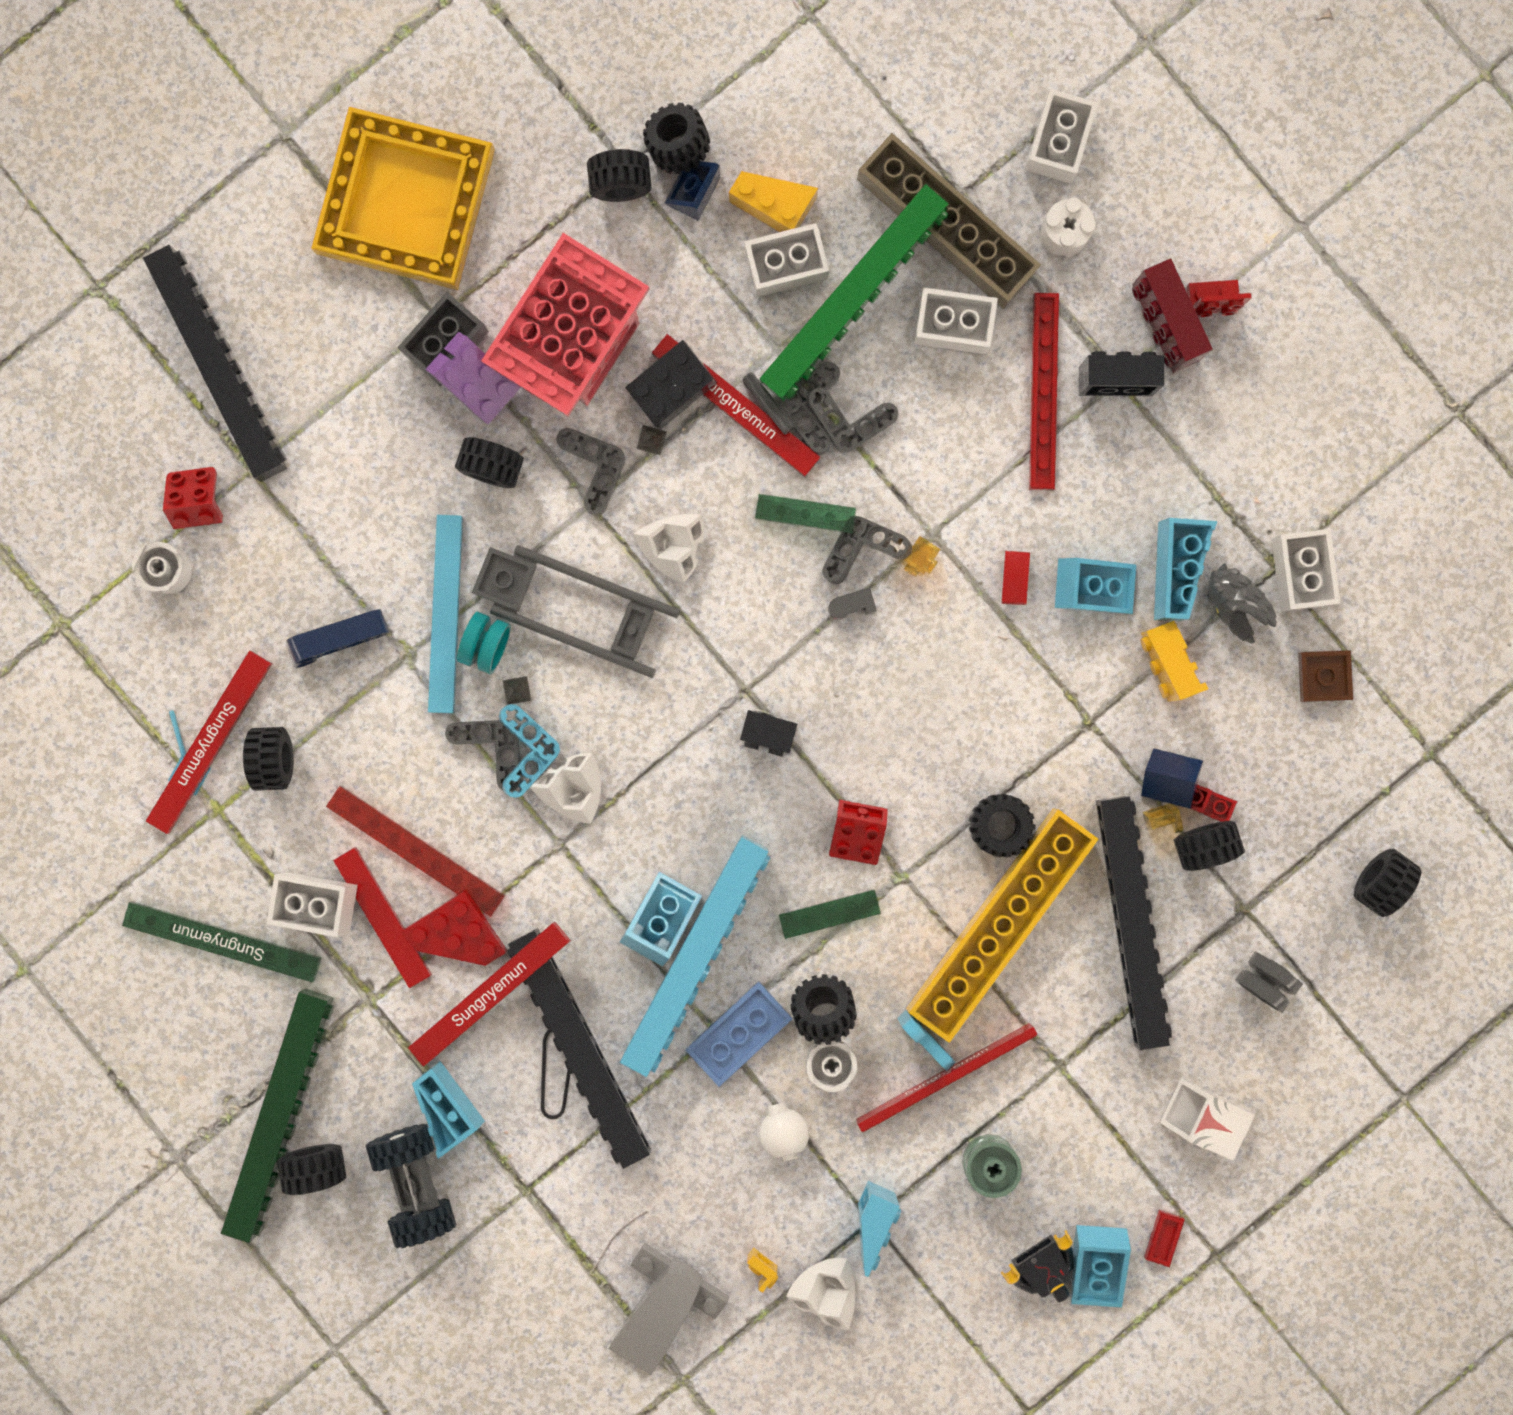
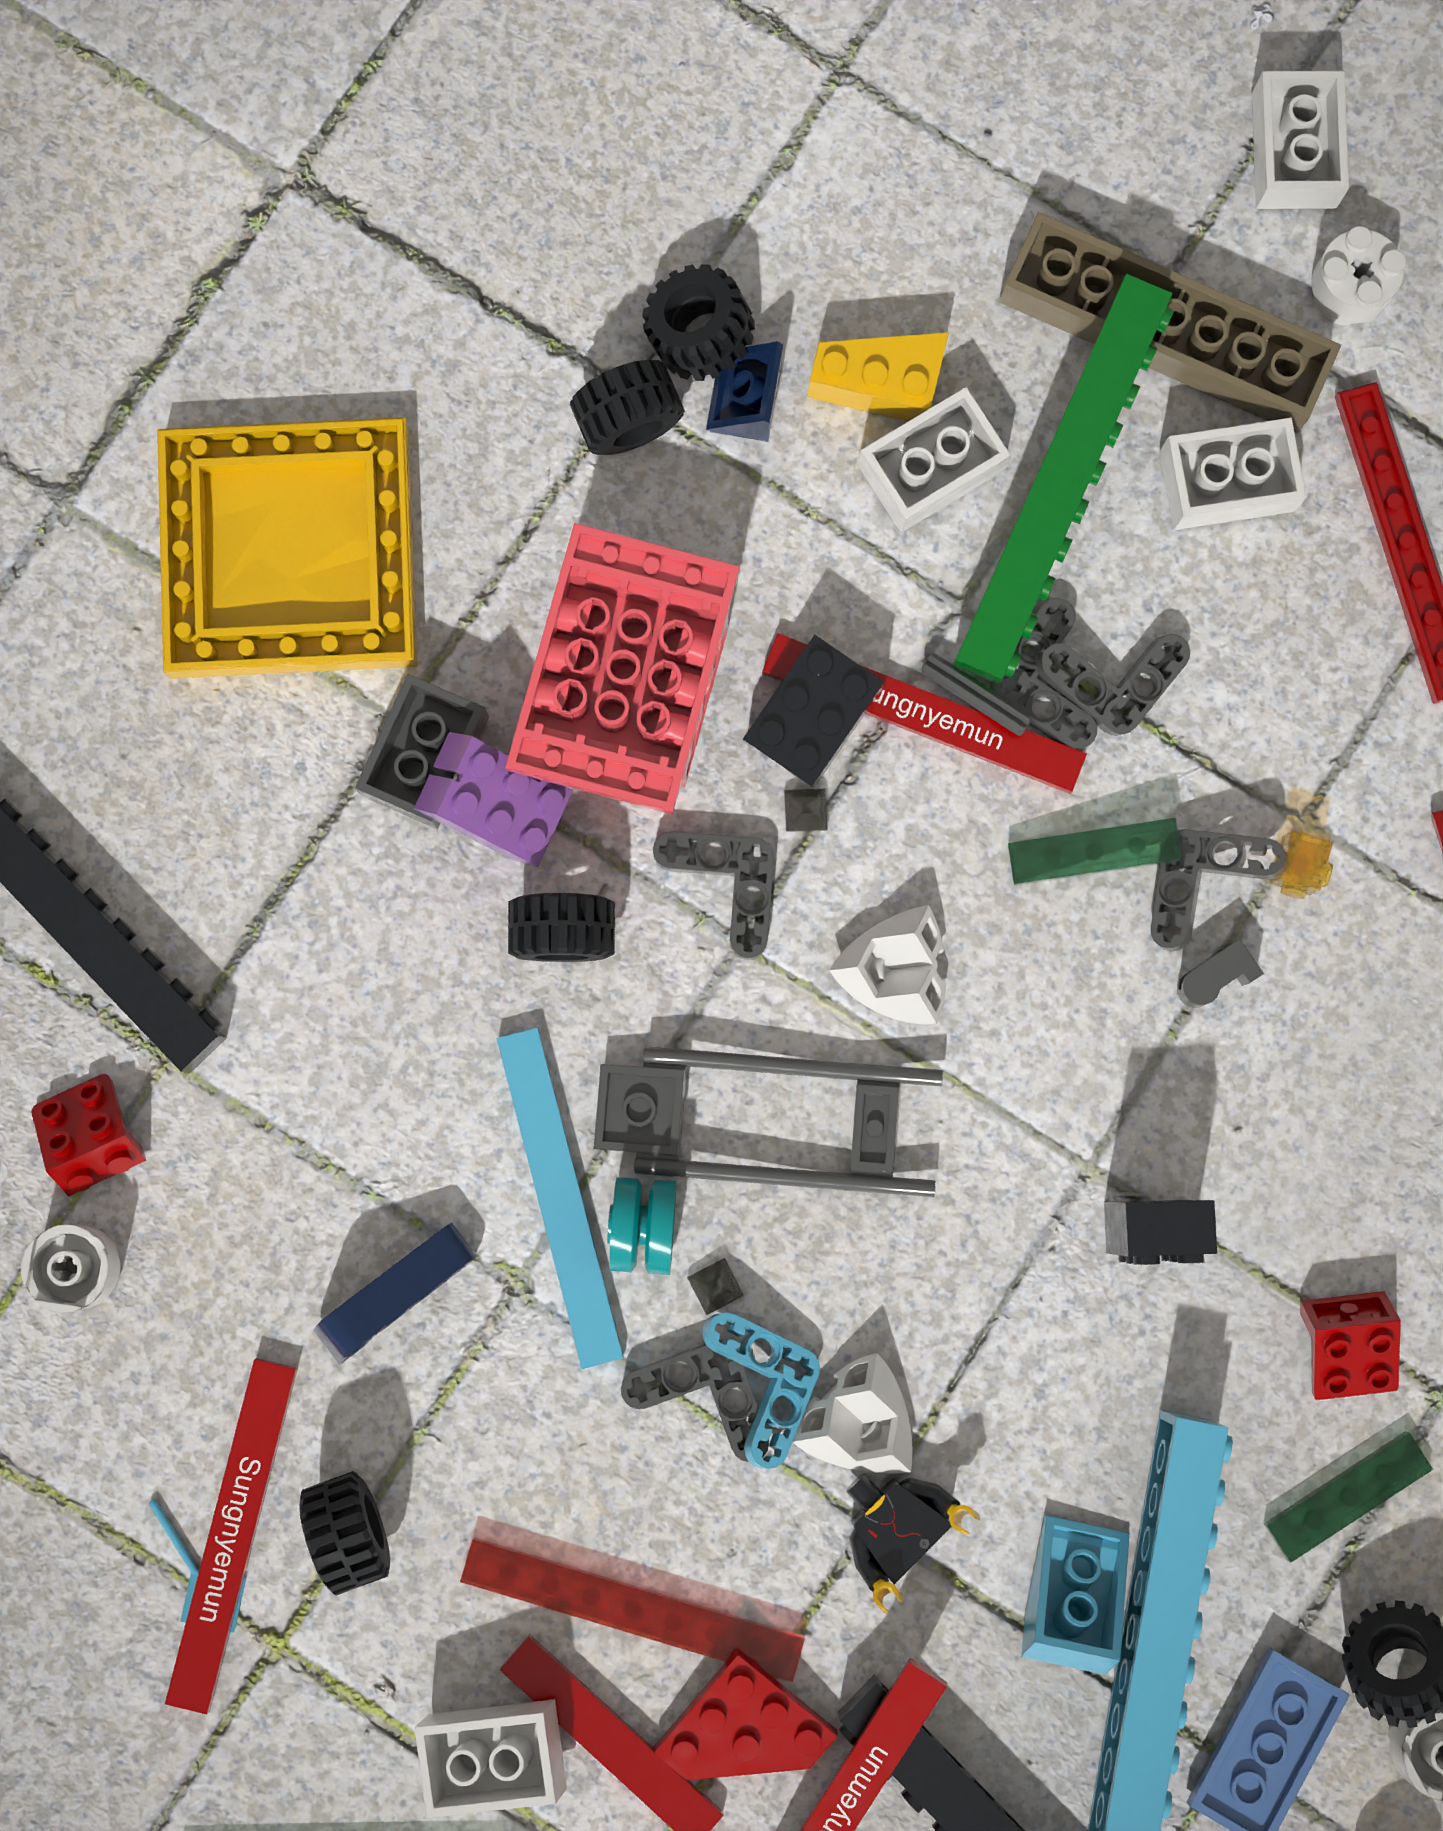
camera: 20 degrees left, 5 degrees down
(573, 852) = (898, 1528): none -> black torso

